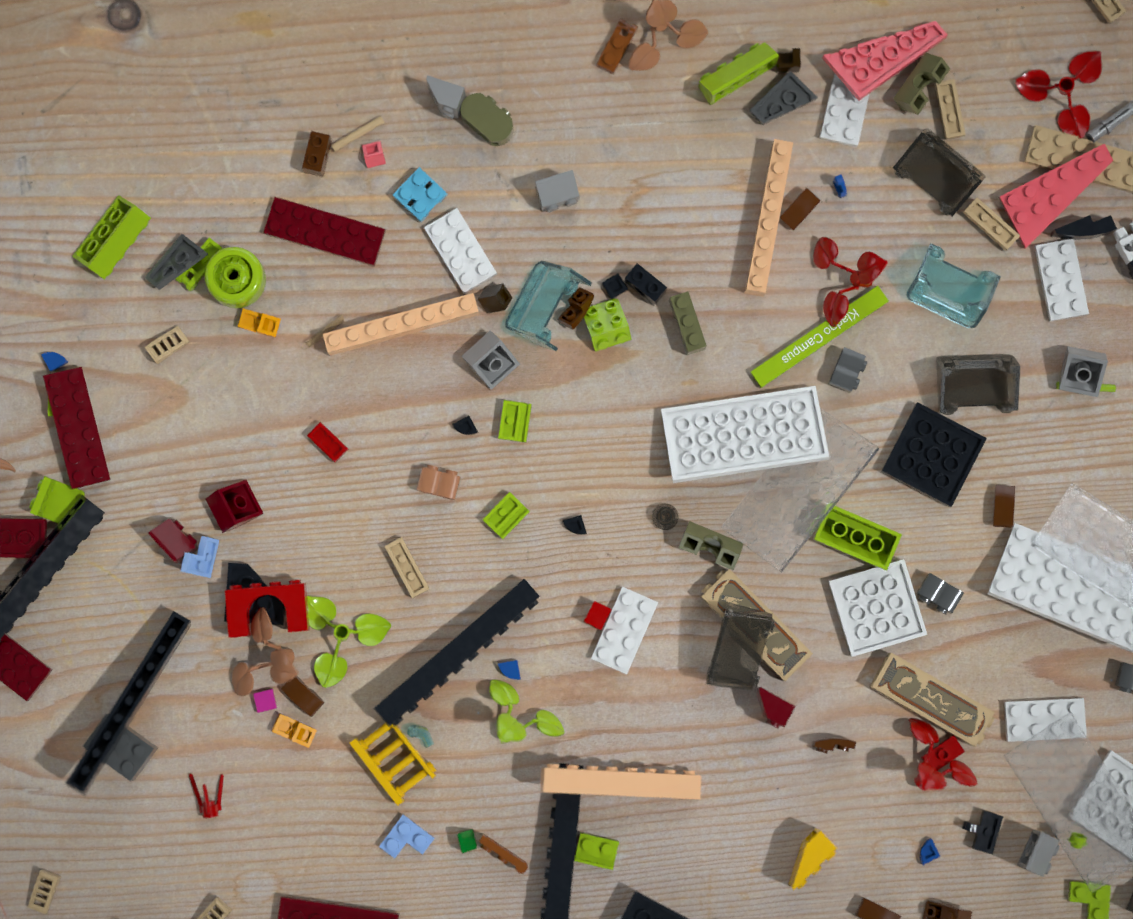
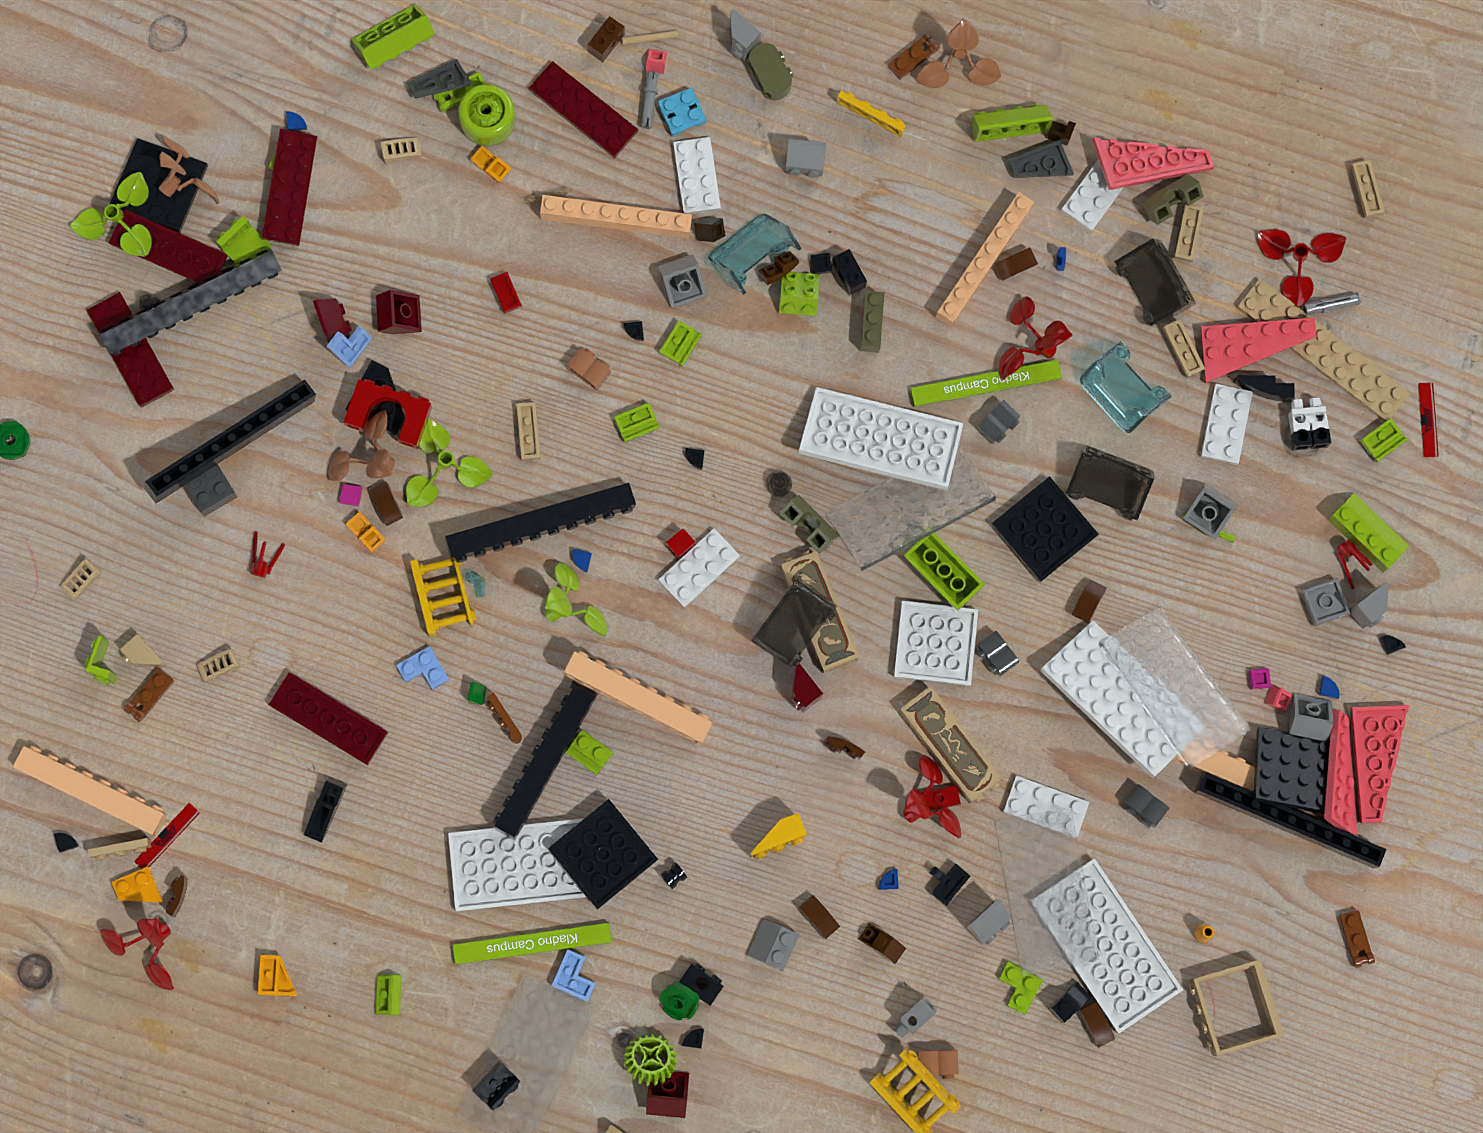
camera: 15 degrees right, 5 degrees down
(383, 195) = (649, 99): none -> light grey pin
(608, 120) = (876, 116): none -> yellow plate
(1077, 840) = (1028, 922): lime plate -> none

